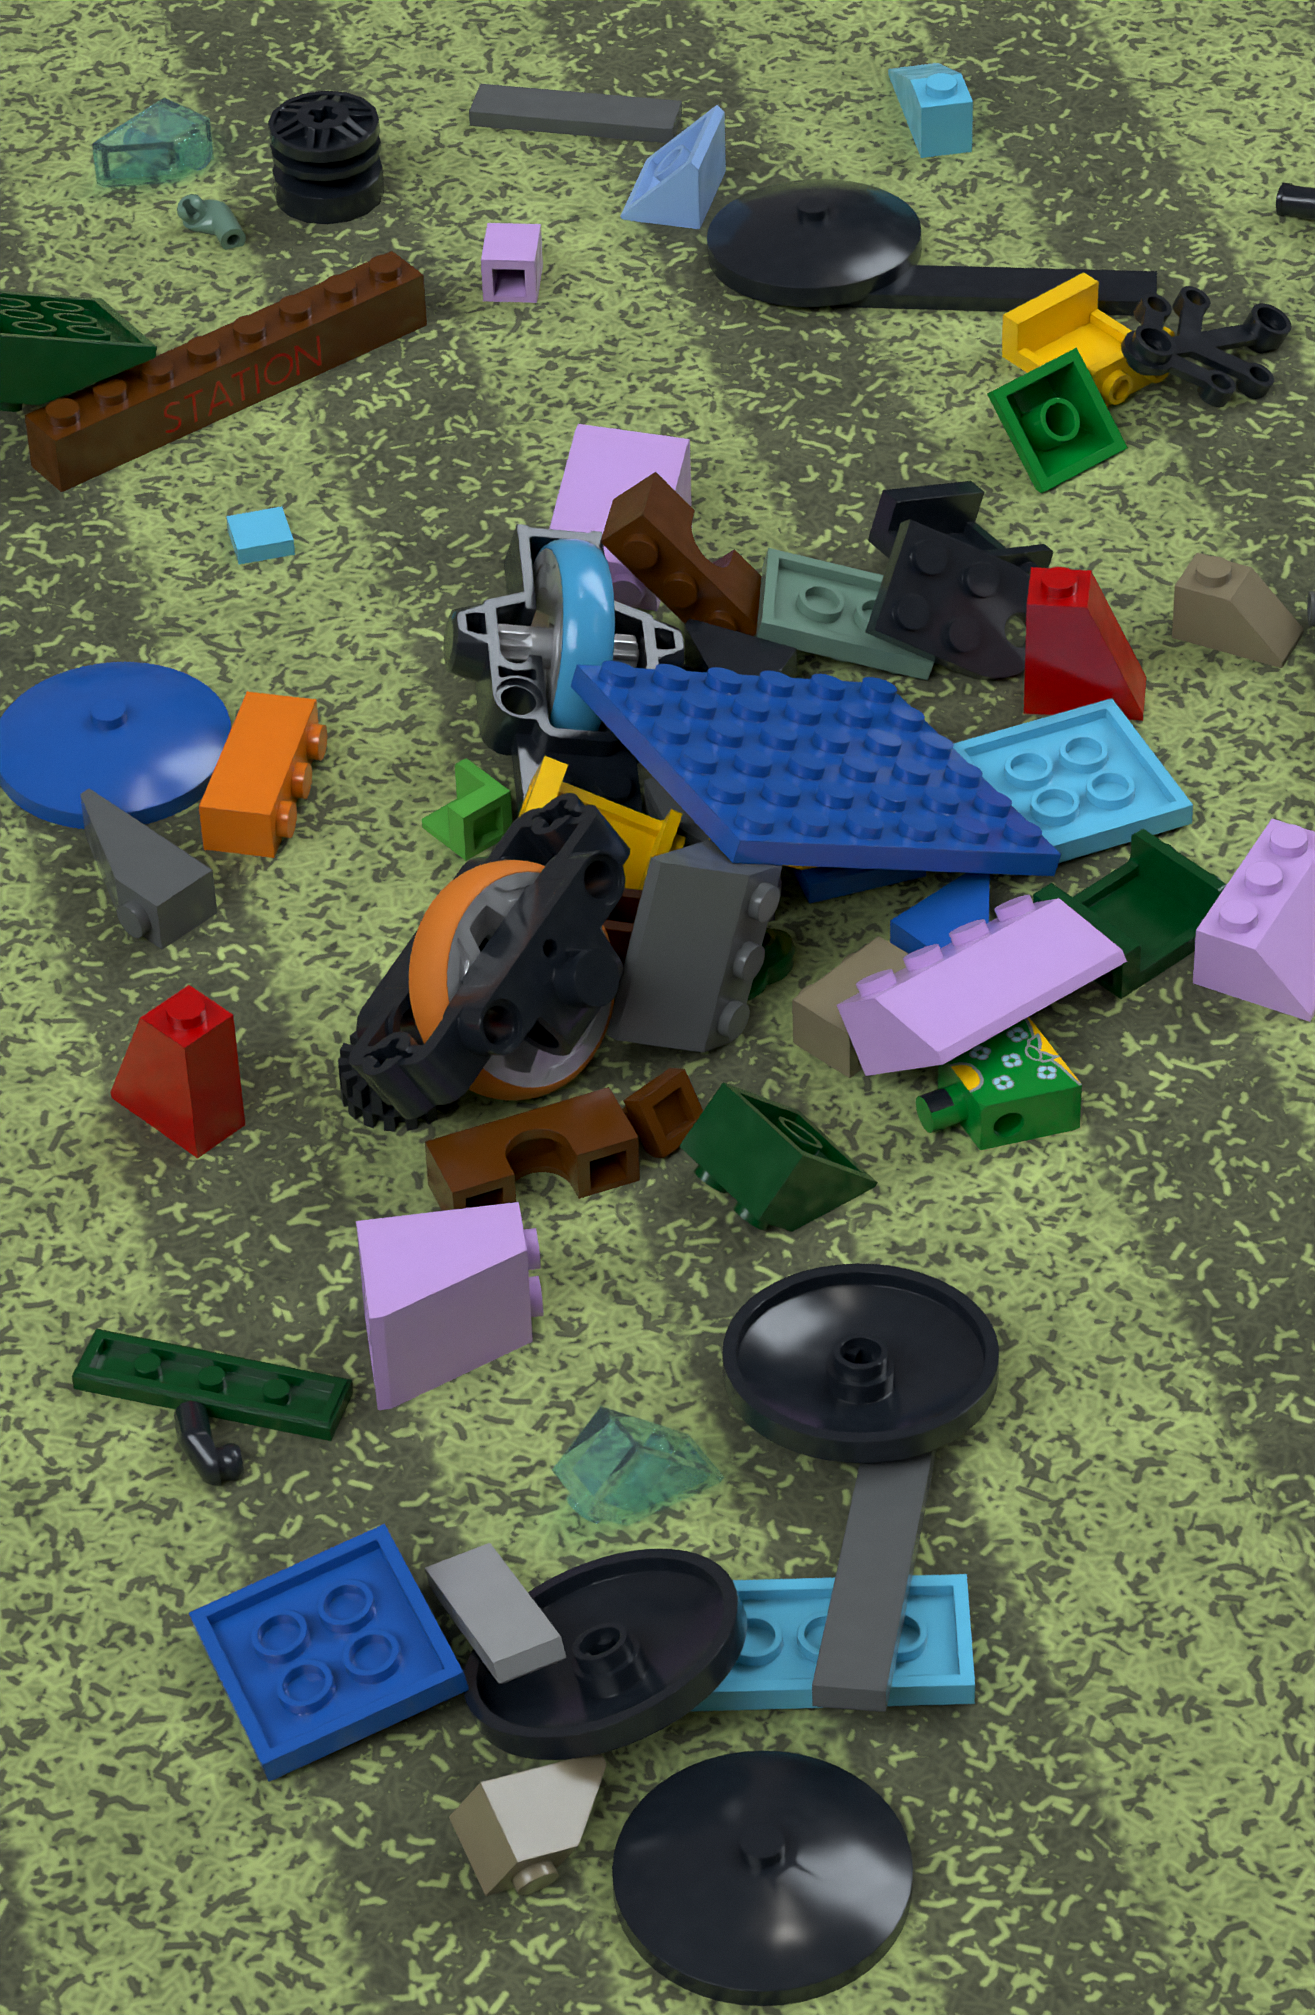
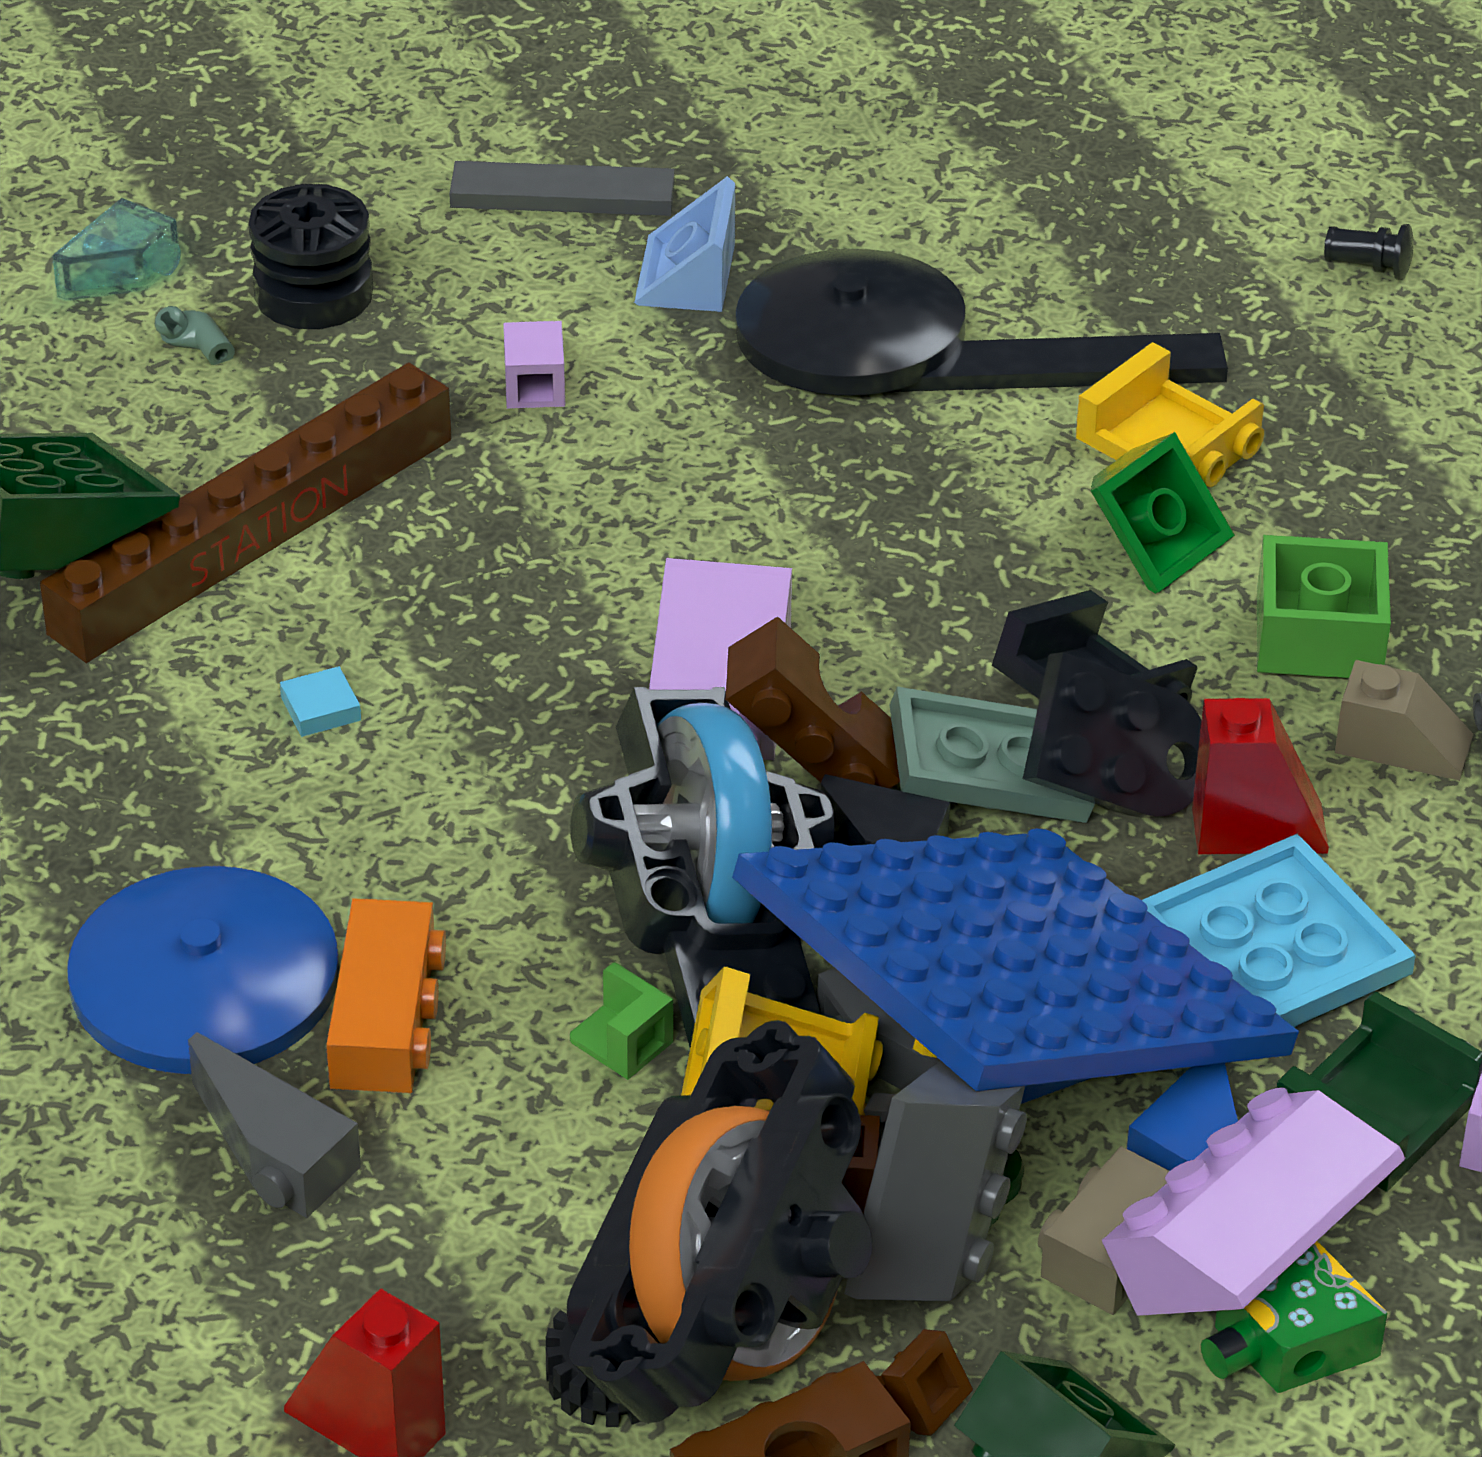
camera: 10 degrees left, 0 degrees up
(935, 108) = (944, 160): medium azure slope -> none
(1154, 352) = (1256, 431): black plant -> none
(1182, 505) = (1321, 605): none -> bright green brick

